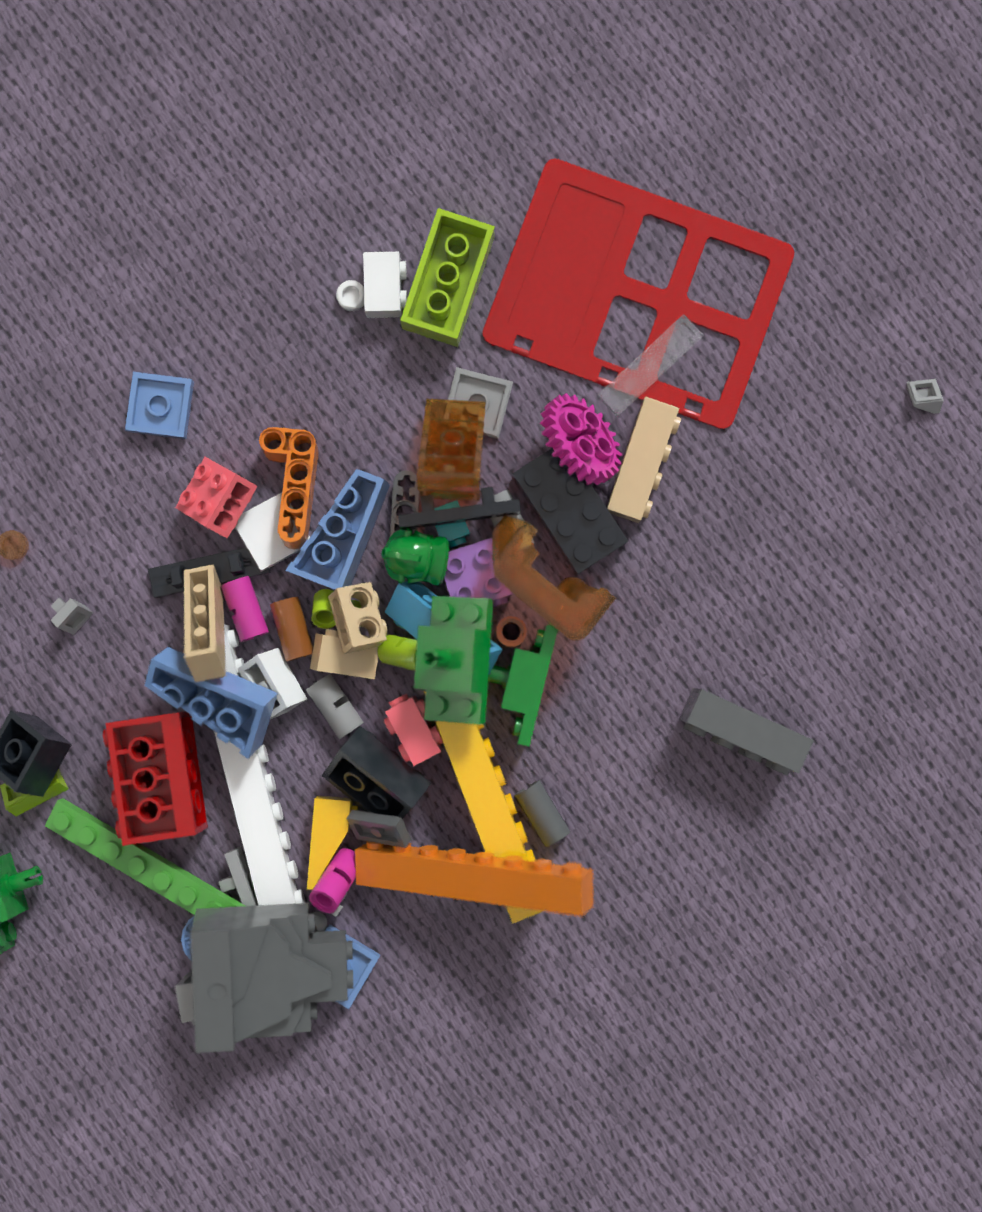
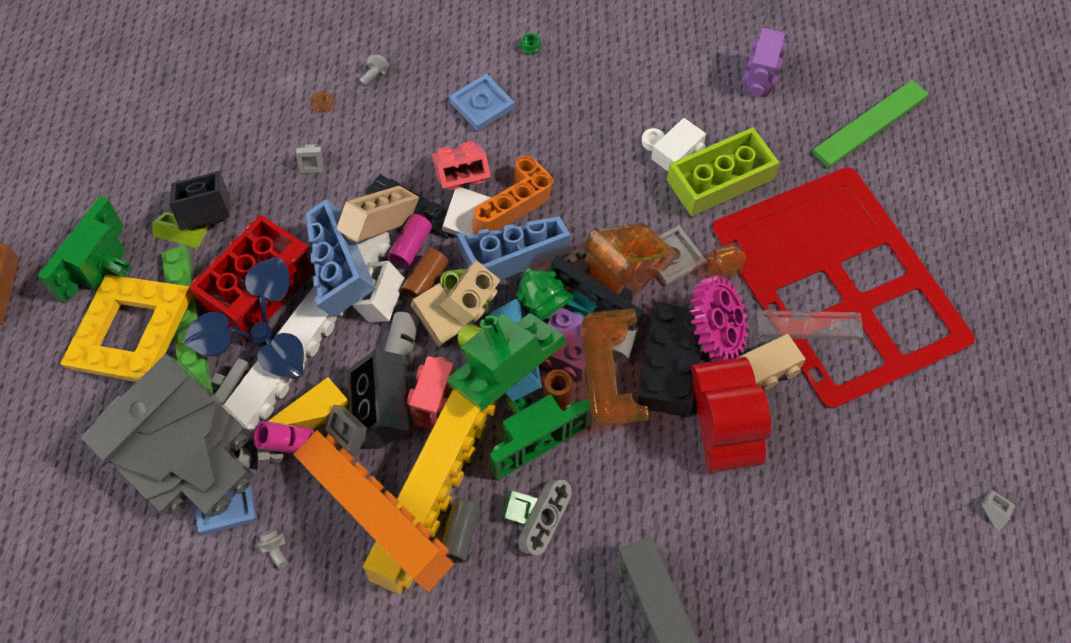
camera: 45 degrees right, 25 degrees down
(22, 459) = (378, 66): none -> light grey plate
(137, 288) = (533, 39): none -> green plate
(152, 931) = (85, 350): none -> yellow plate
(187, 777) = (279, 354): none -> dark blue plant
(379, 115) = (764, 62): none -> medium lavender brick
(408, 960) = (270, 543): none -> light grey plate
(527, 89) = (870, 124): none -> bright green tile
(531, 369) = (726, 261): none -> clear orange head
(570, 751) = (518, 507): none -> plate
(609, 756) = (534, 522): none -> light grey beam
(663, 518) = (731, 414): none -> red brick

